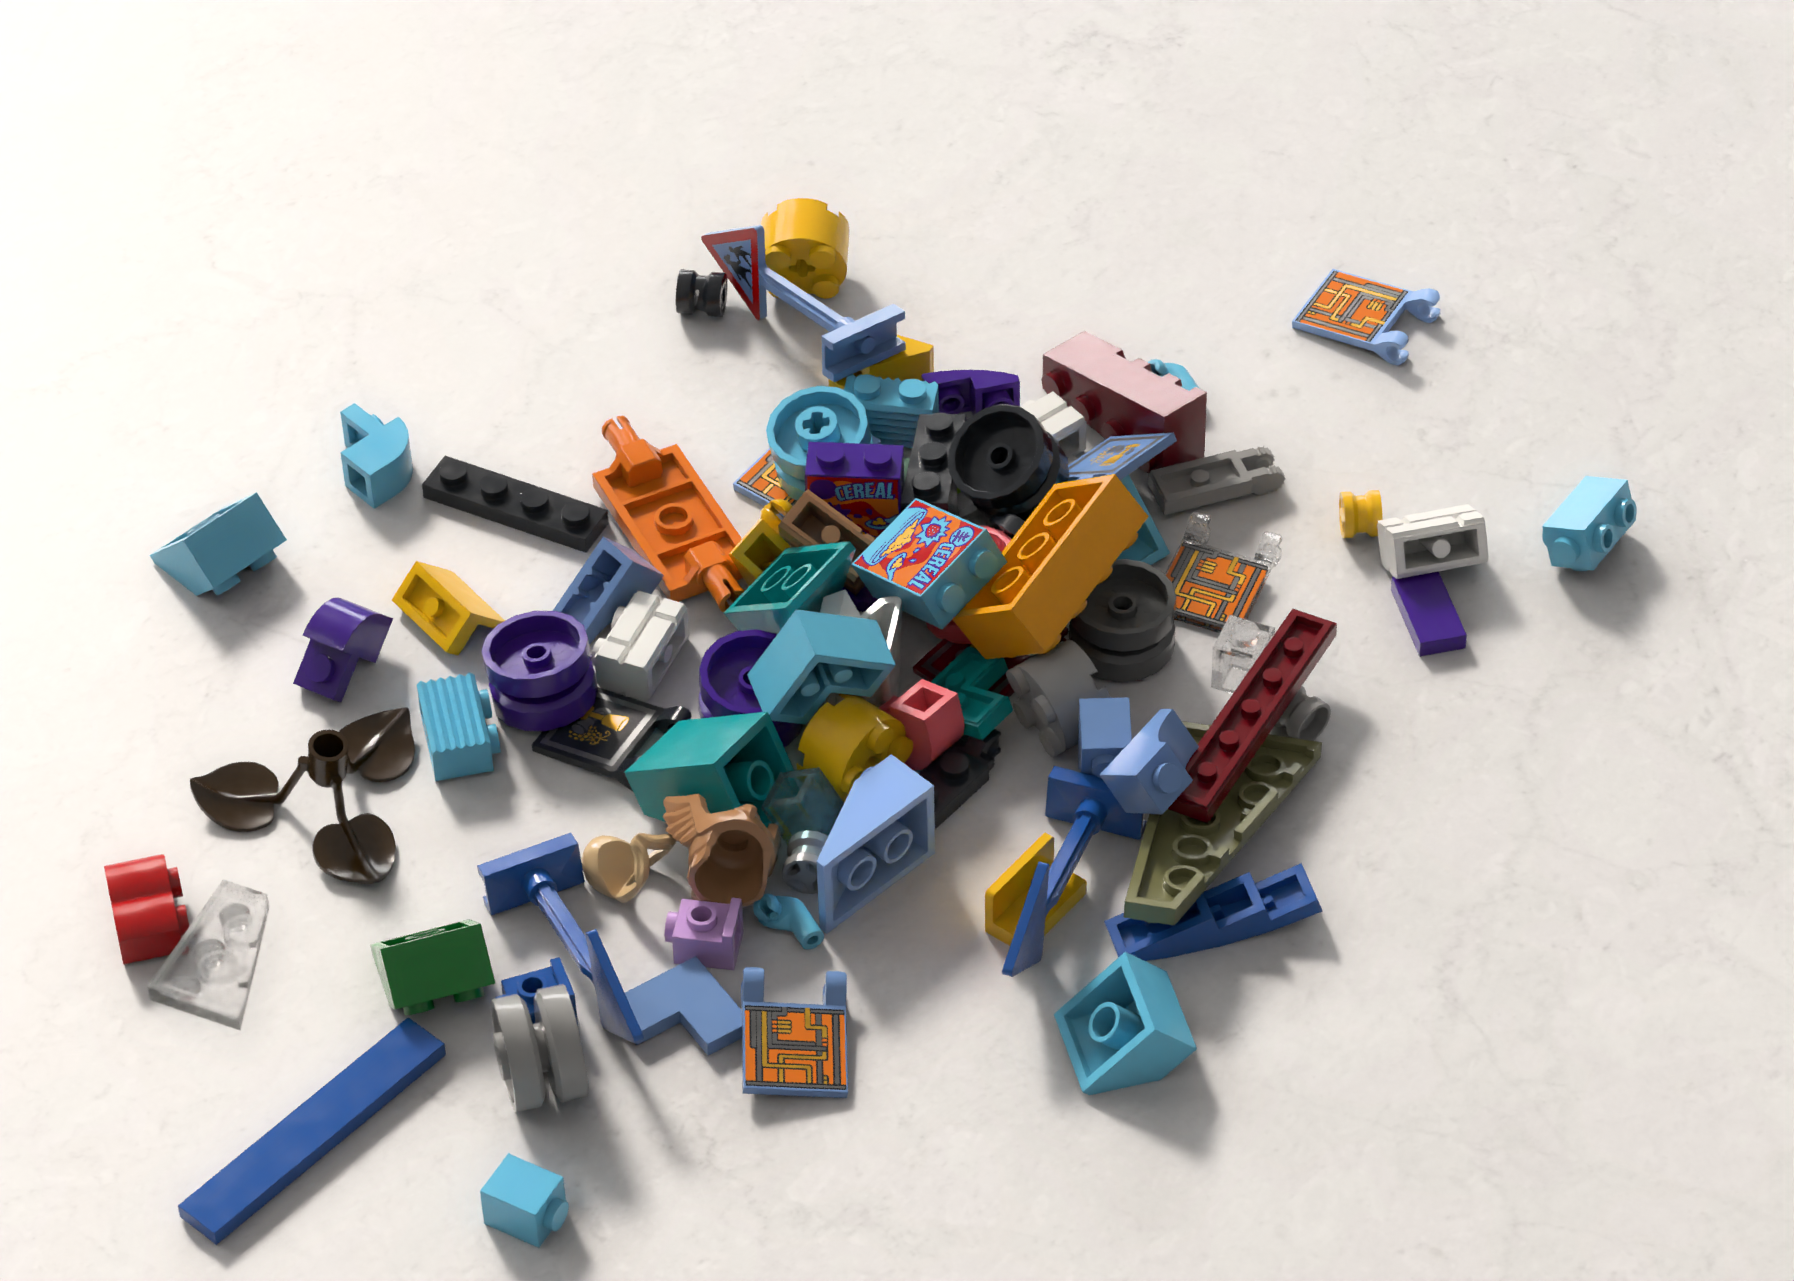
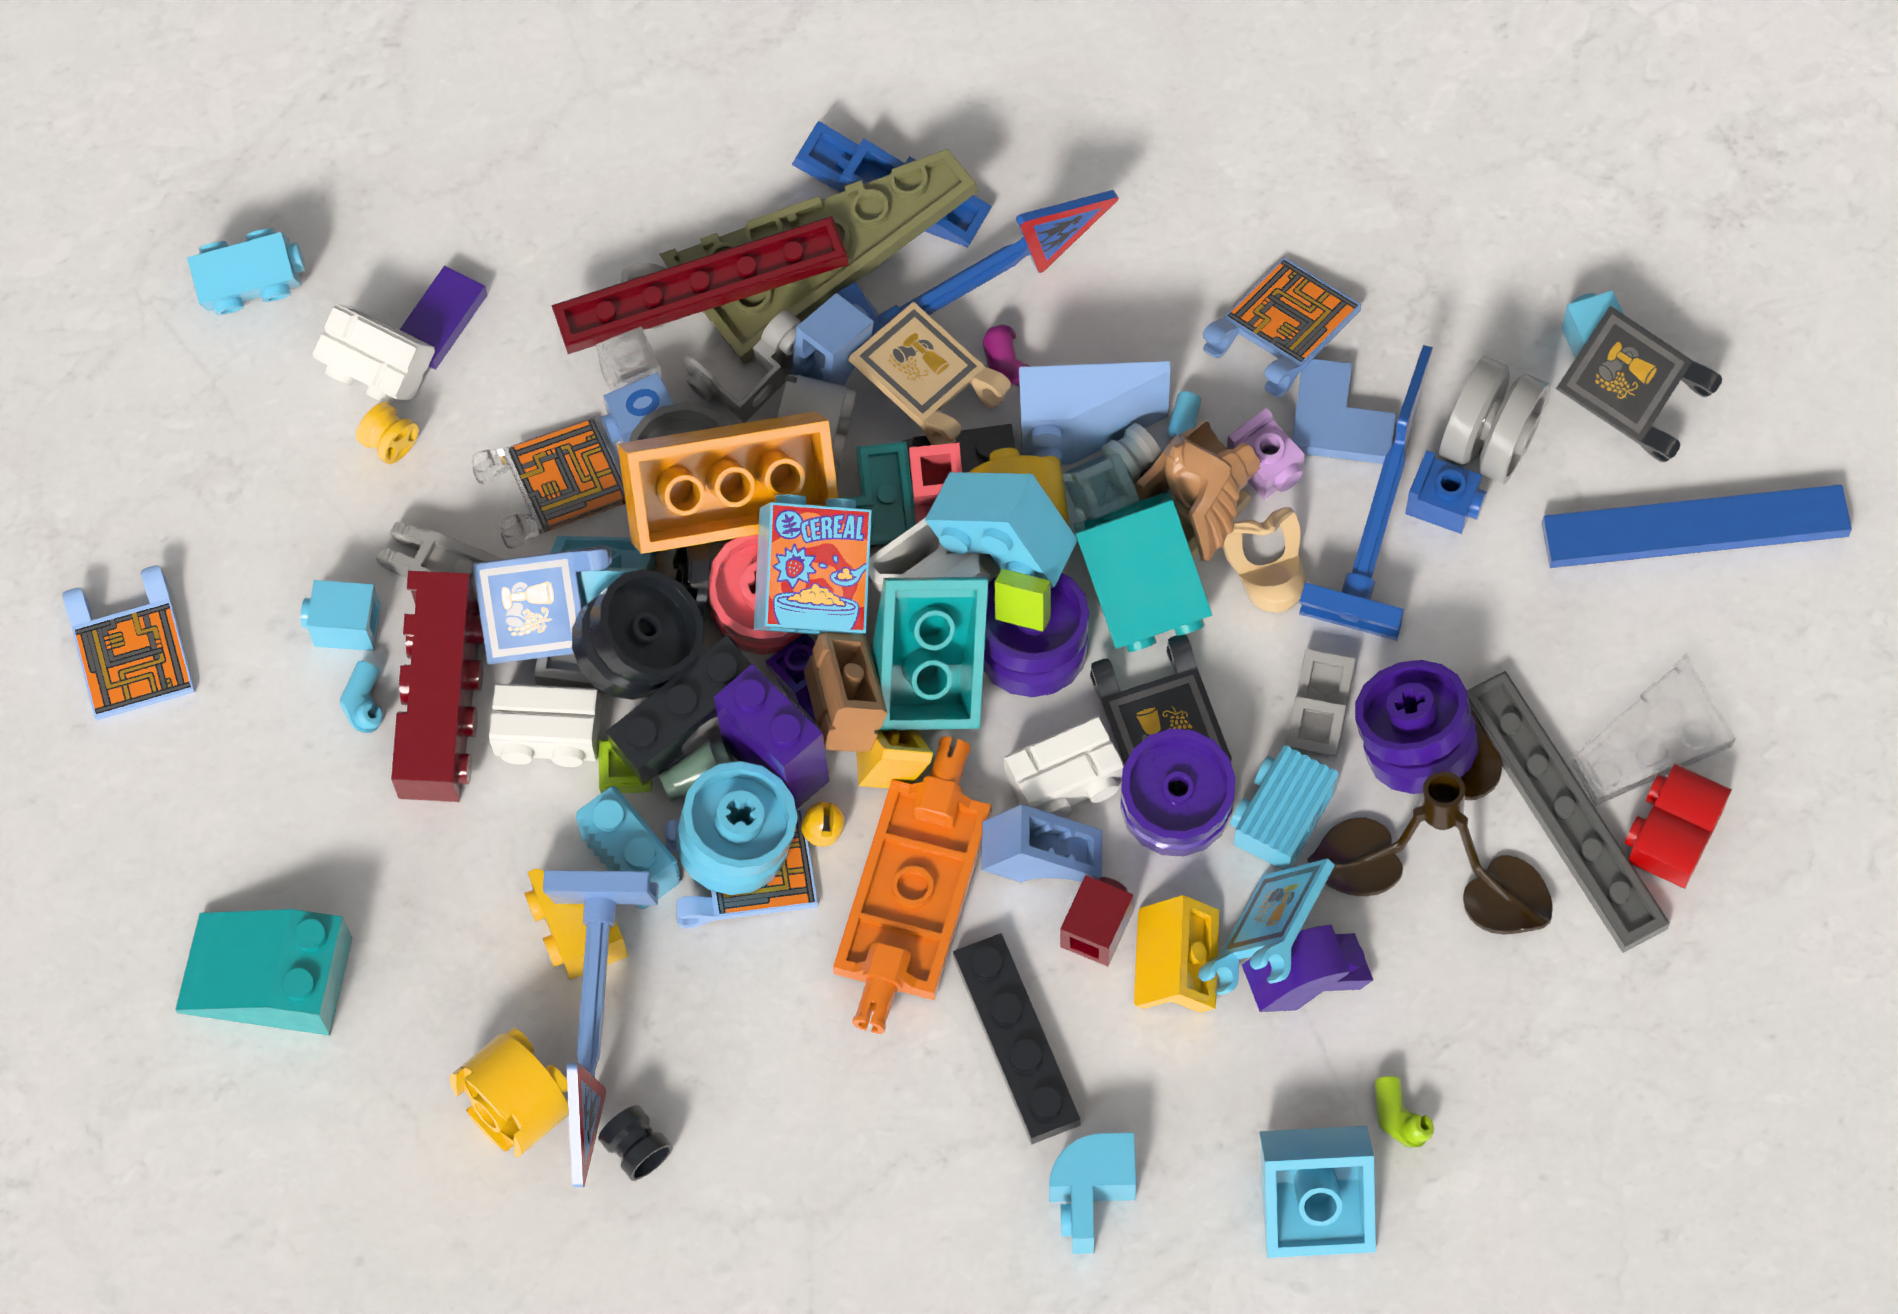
camera: 135 degrees left, 20 degrees up
(200, 624) = (1396, 1120): none -> lime arm
(288, 883) = (1566, 814): none -> dark grey tile
(388, 629) = (1269, 924): none -> medium azure flag
(399, 812) = (1416, 724): none -> dark purple wheel
(434, 966) = (1493, 593): green slope -> none
(450, 1169) = (1628, 378): none -> black flag
(497, 815) = (1320, 702): none -> light grey slope
(523, 579) = (1097, 919): none -> dark red brick
(750, 648) = (1022, 600): none -> lime tile
(974, 389) = (532, 807): dark purple slope -> none
(976, 864) = (1000, 352): none -> magenta arm
(1008, 893) = (1005, 300): yellow panel -> none
(1023, 783) = (925, 369): none -> tan flag
(1038, 226) = (267, 968): none -> teal slope
(1125, 1027) = (1052, 139): medium azure slope -> none
(1152, 766) = (845, 263): medium blue arch -> none
(1169, 683) = (772, 354): none -> light grey piece
(1193, 640) = (631, 404): none -> medium blue brick
(1244, 404) = (342, 615): none -> medium azure brick

